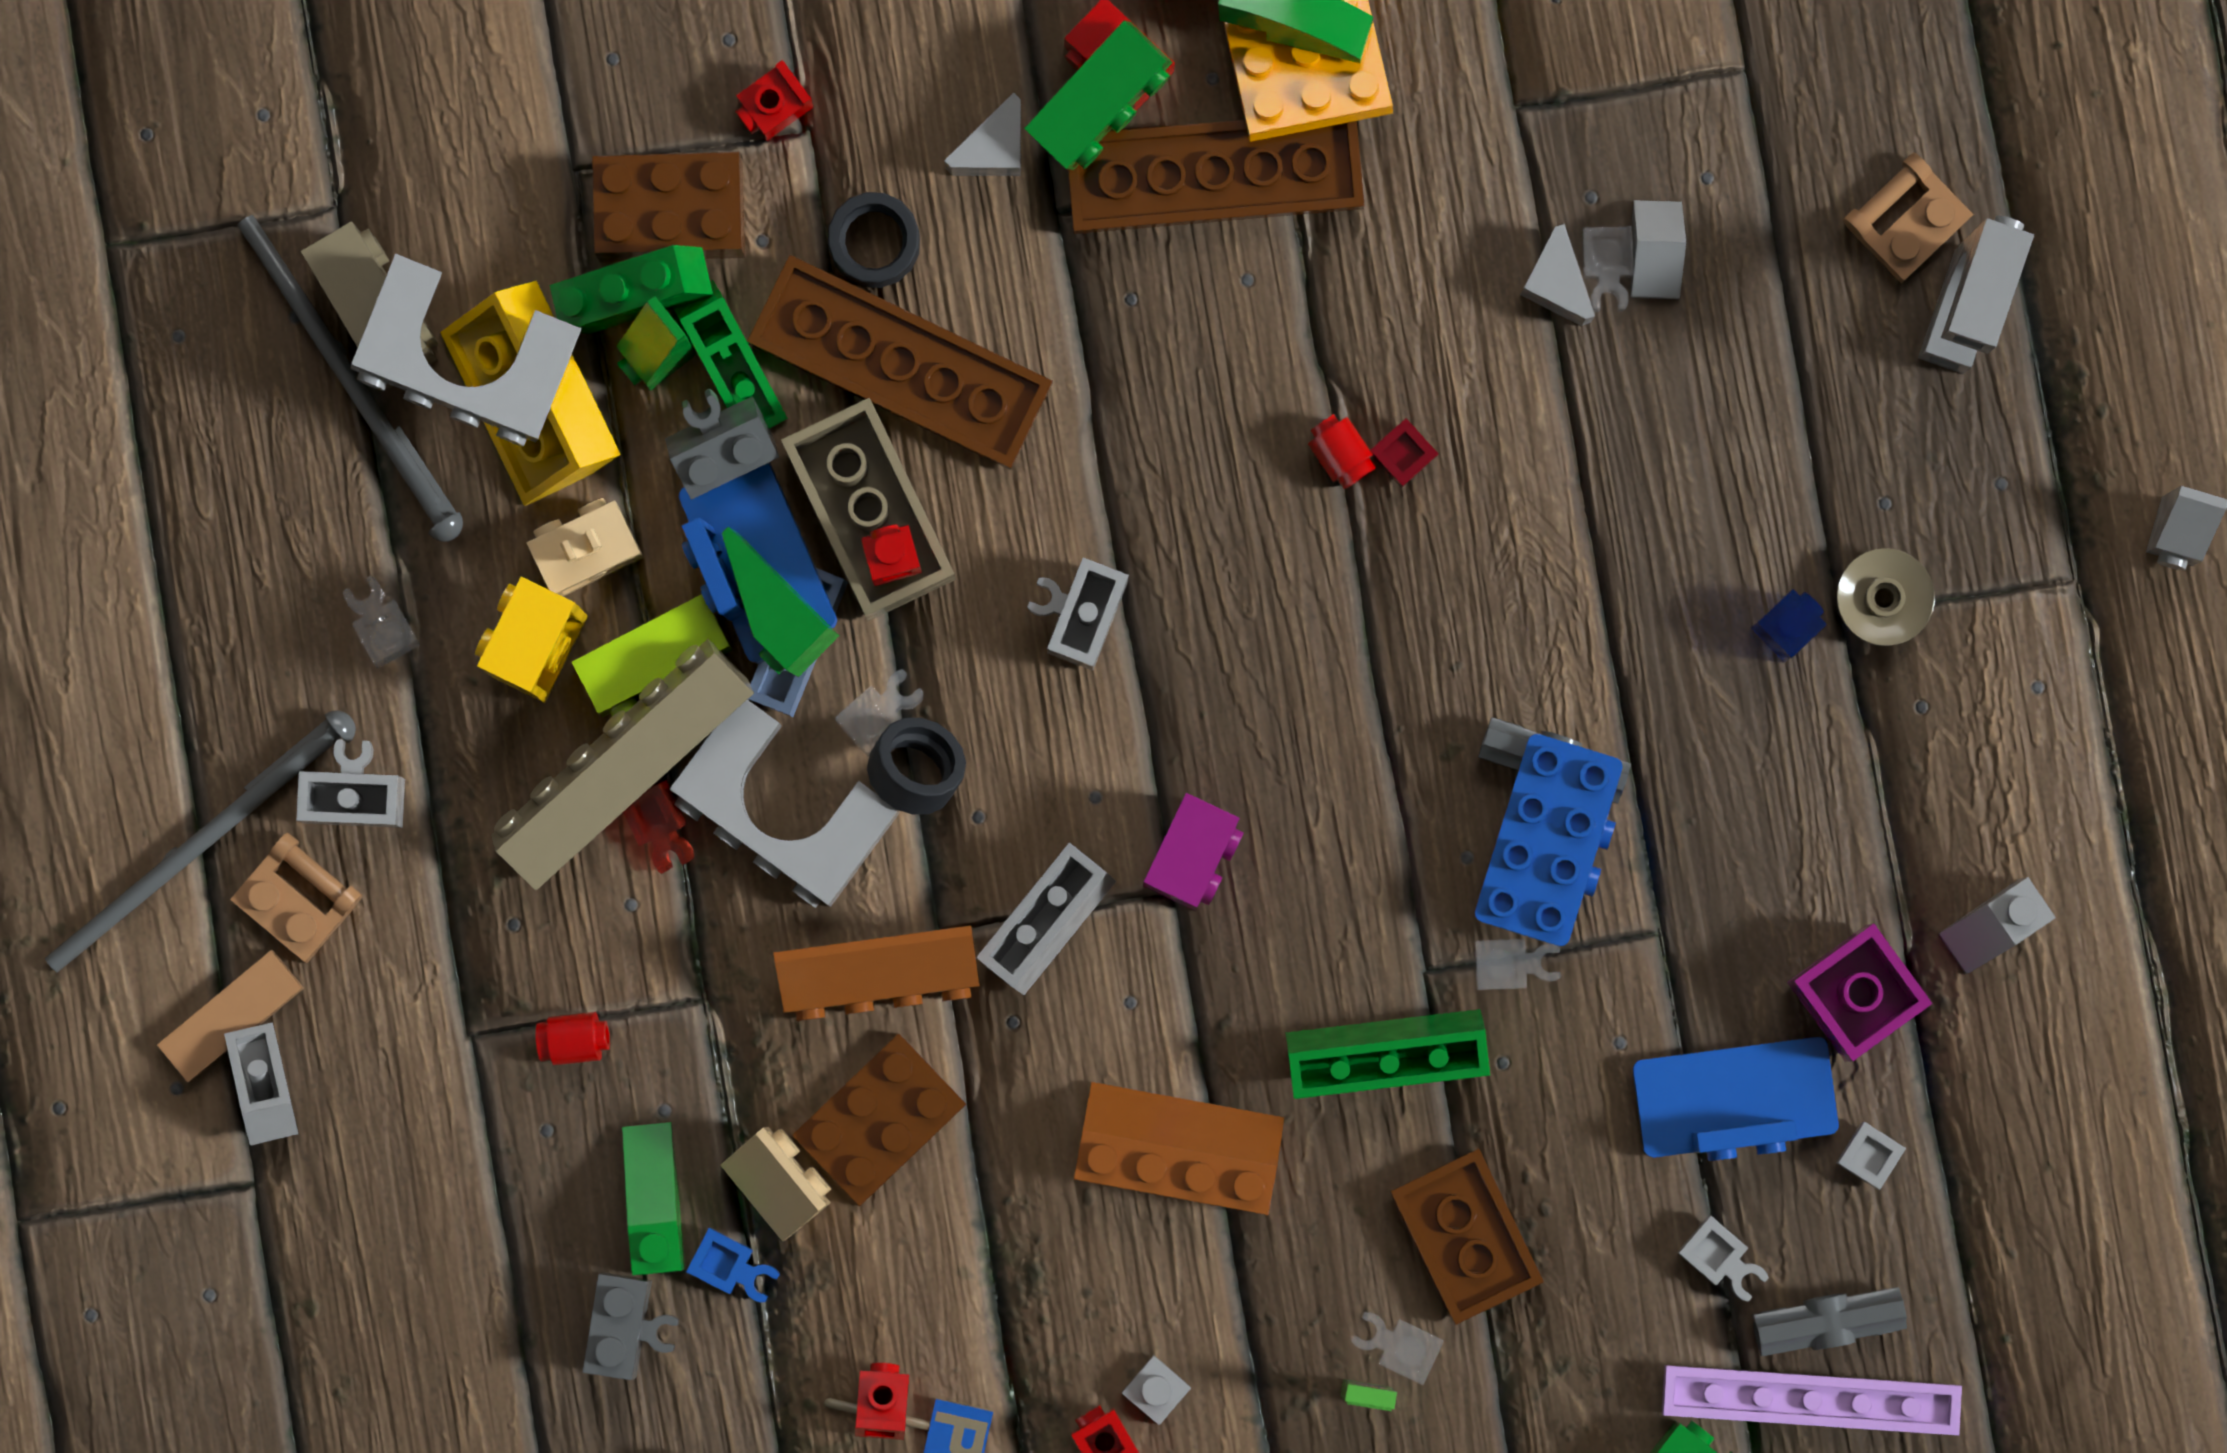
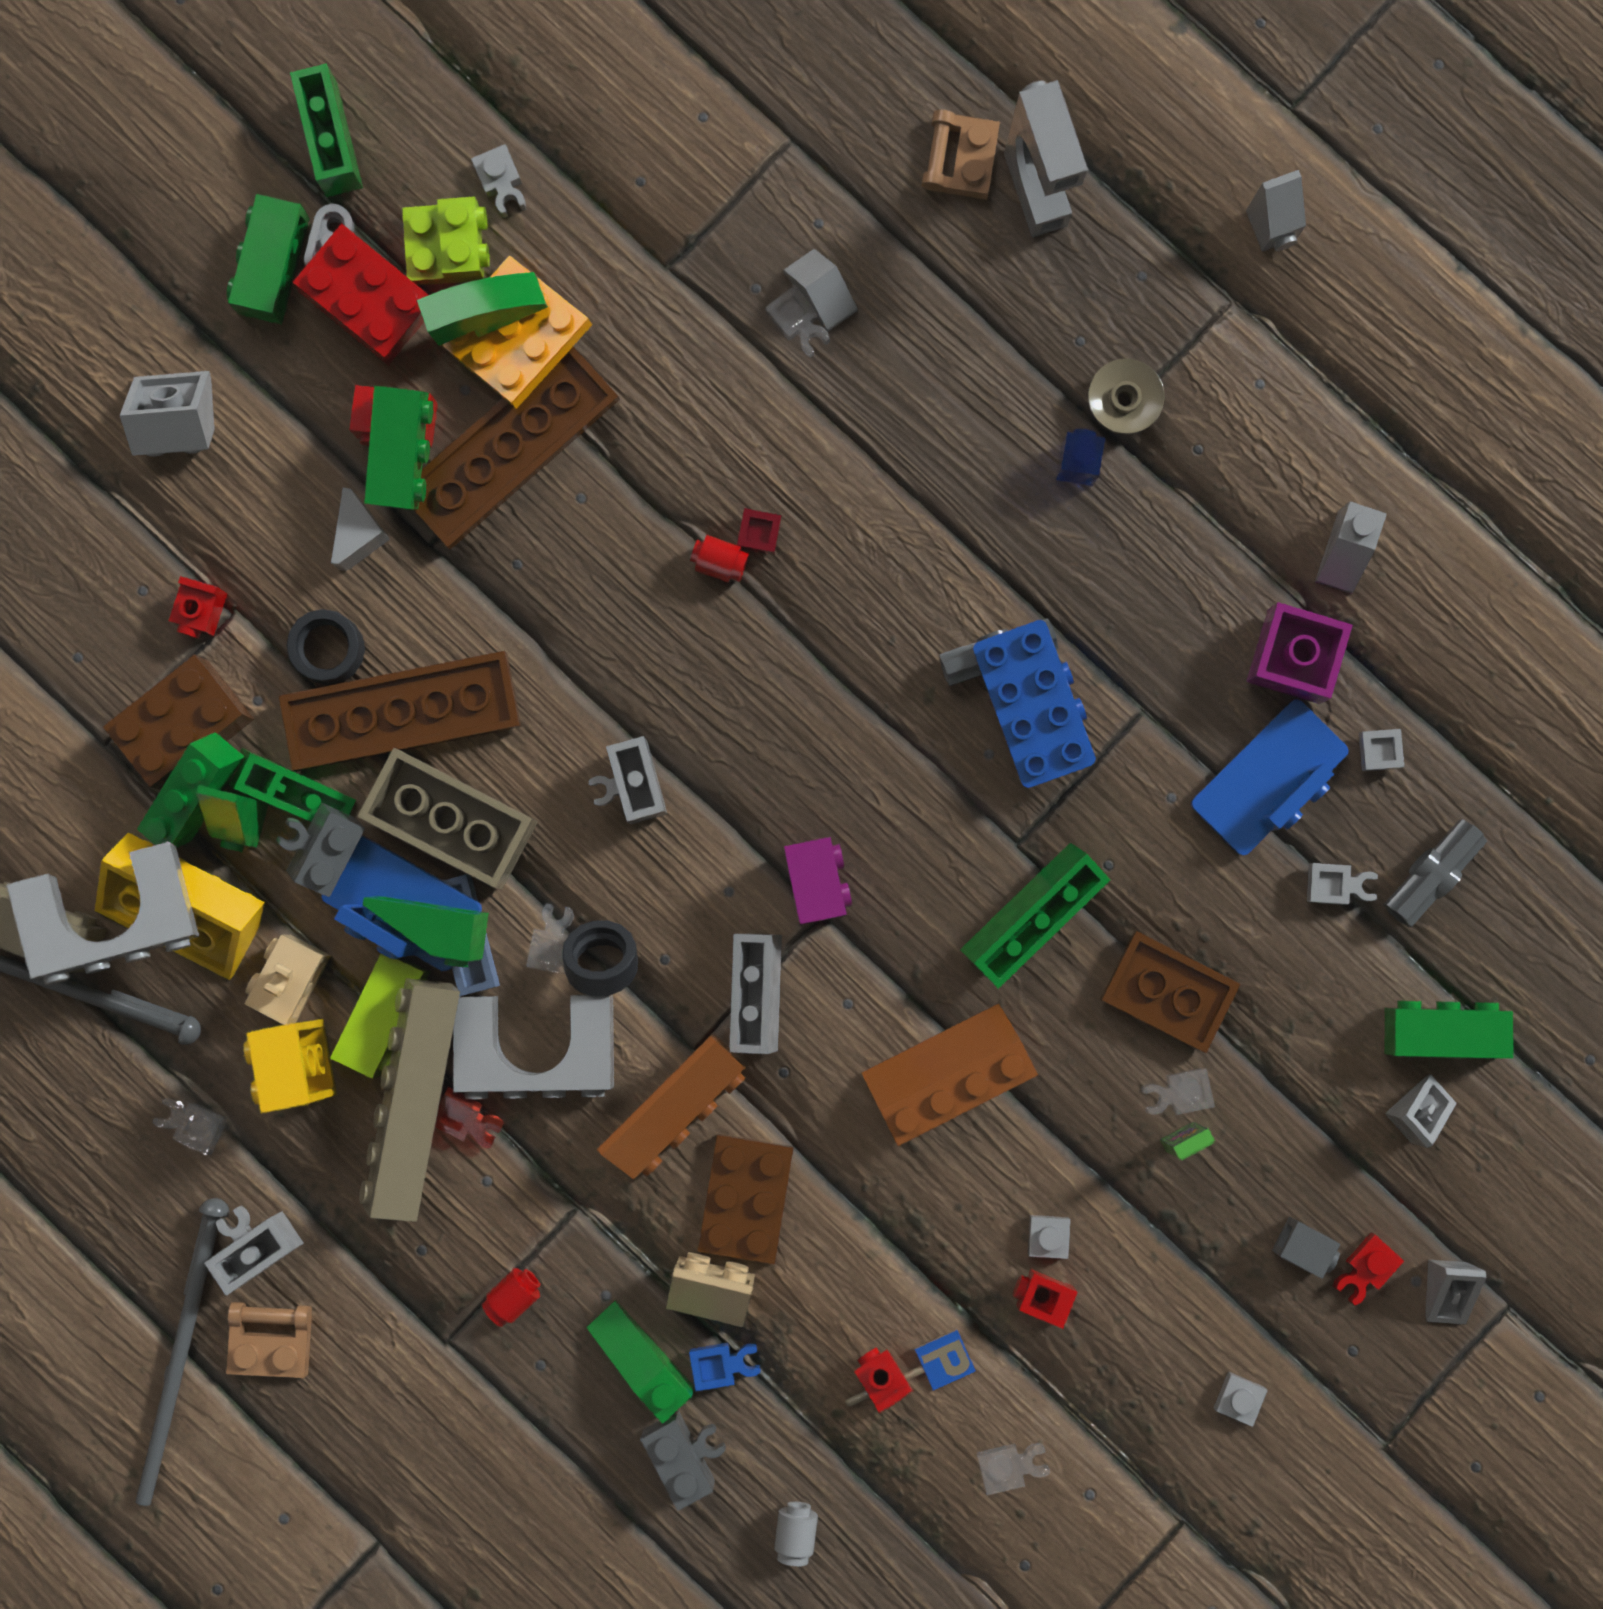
camera: 30 degrees left, 0 degrees up
(239, 1006) = (283, 1448): medium nougat tile -> none
(261, 1083) = (333, 1479): light grey slope -> none
(891, 554) = (480, 836): red brick -> none
(1506, 964) = (1065, 802): clear plate -> none
(1558, 281) = (775, 353): light grey slope -> none
(1811, 1400) = (1461, 930): lavender plate -> none

